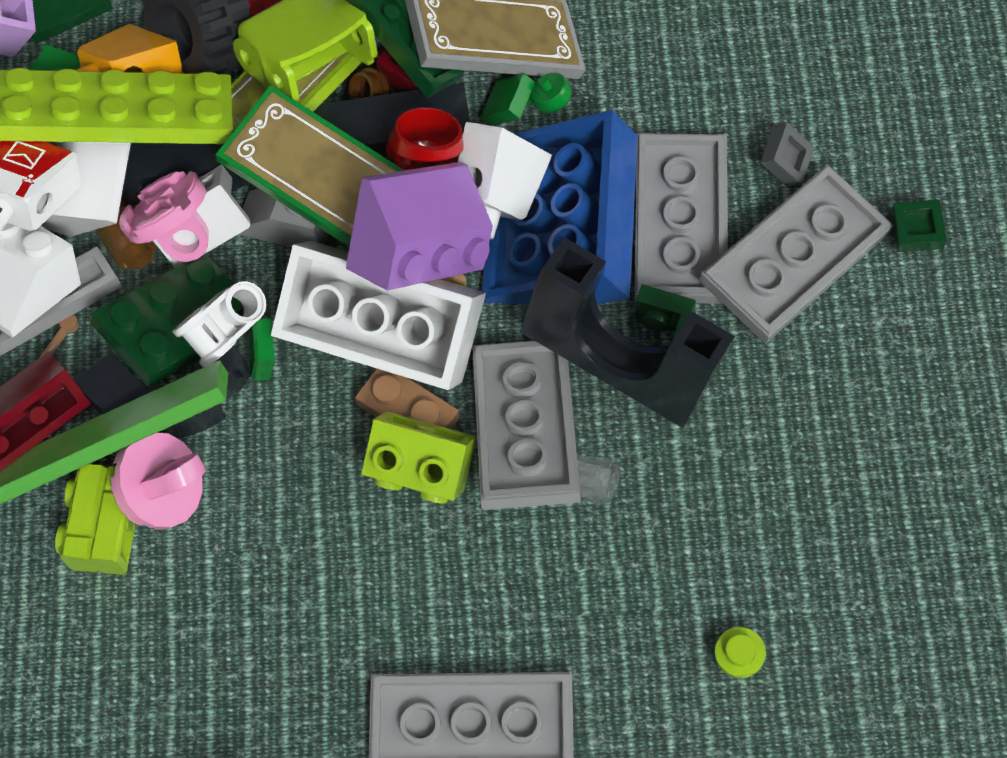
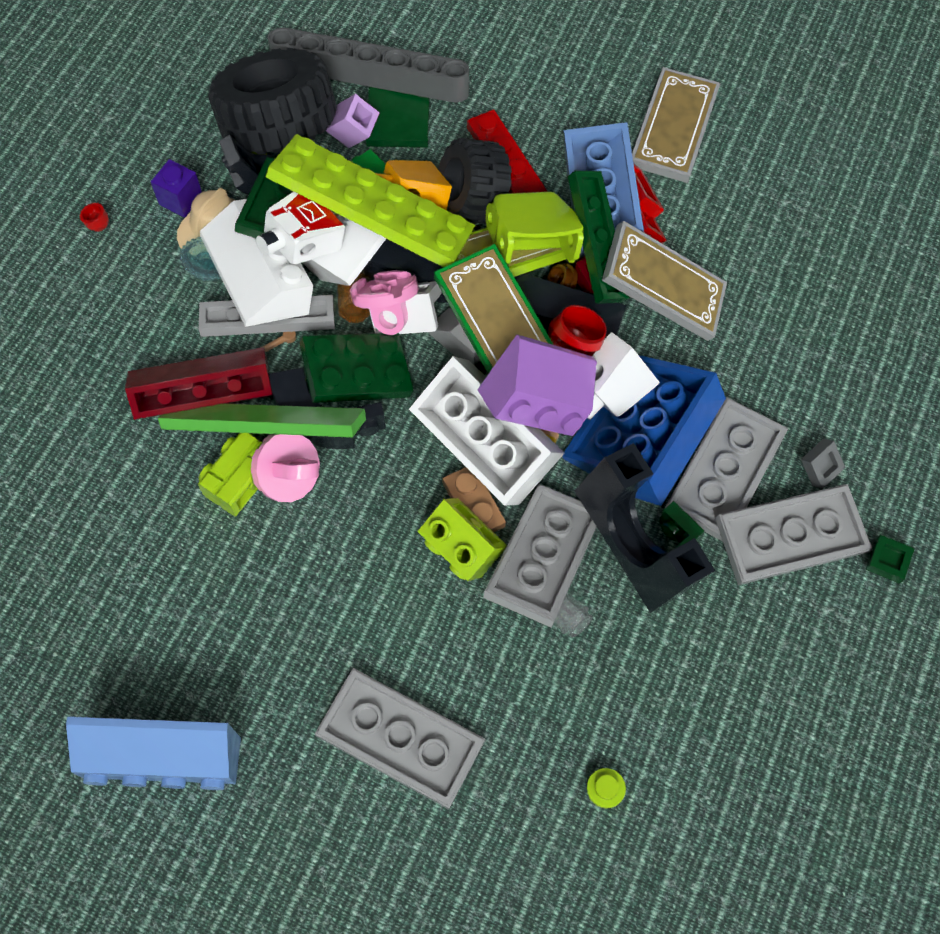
camera: 20 degrees right, 0 degrees up
(216, 326) = (375, 384): white piece -> none
(261, 350) = (399, 415): green tile -> none
(508, 99) = (651, 331): green tile -> none
(550, 93) = (680, 340): green piece -> none

